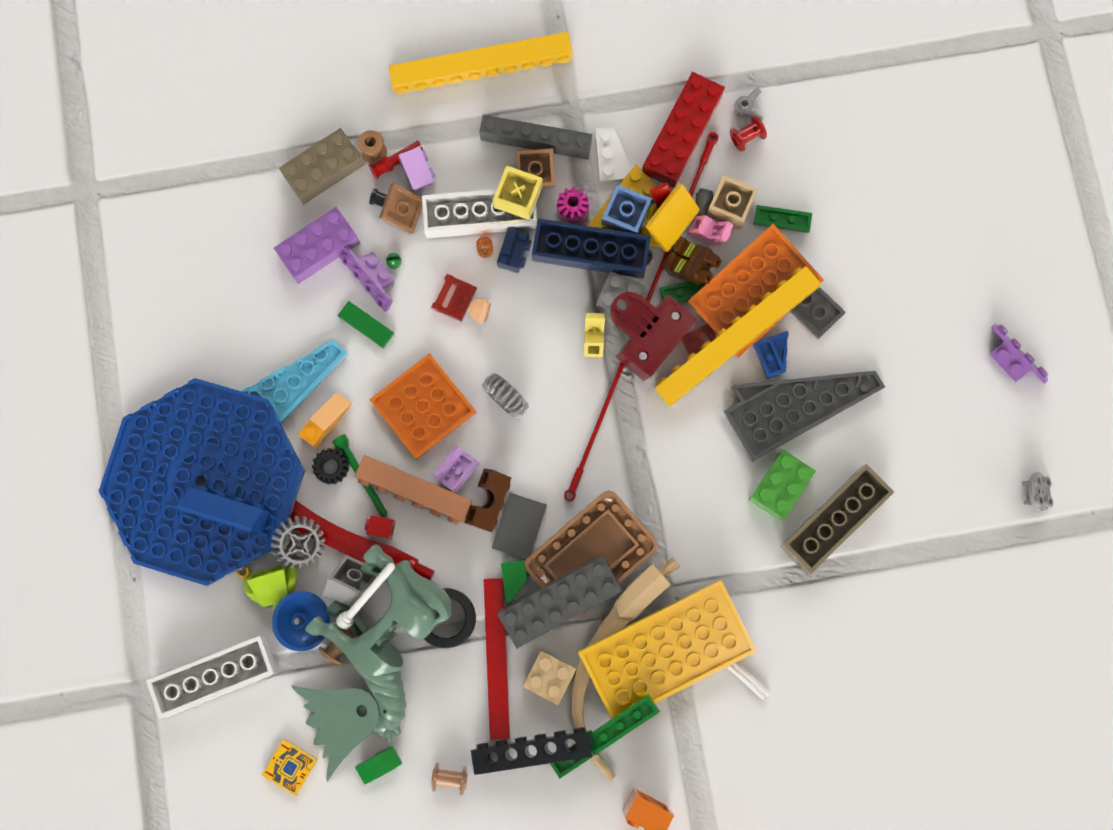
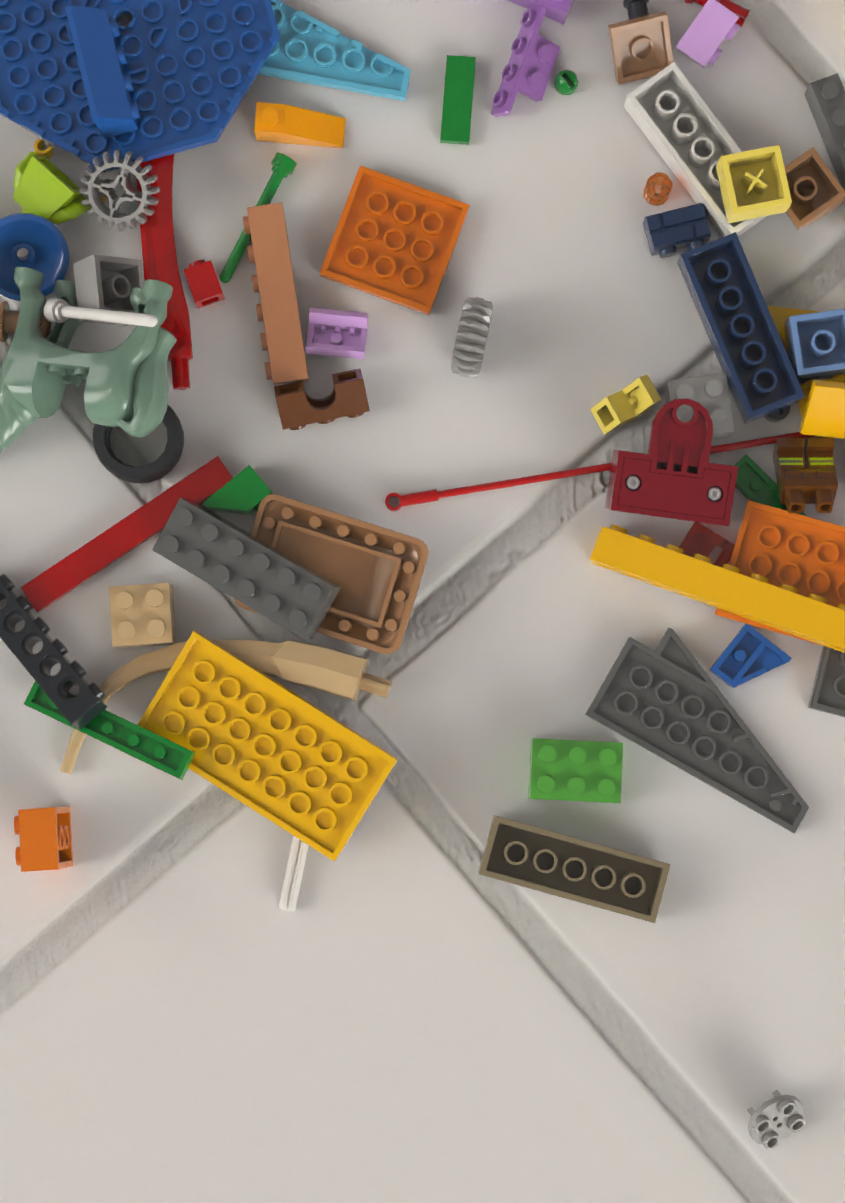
camera: 55 degrees right, 5 degrees up
(326, 455) = (239, 154): black tyre -> none
(459, 301) = (566, 201): clear red plate -> none
(479, 309) = (568, 235): light nougat cone -> none
(519, 526) = (314, 460): dark grey tile -> none
(572, 206) = (776, 283): dark pink gear -> none

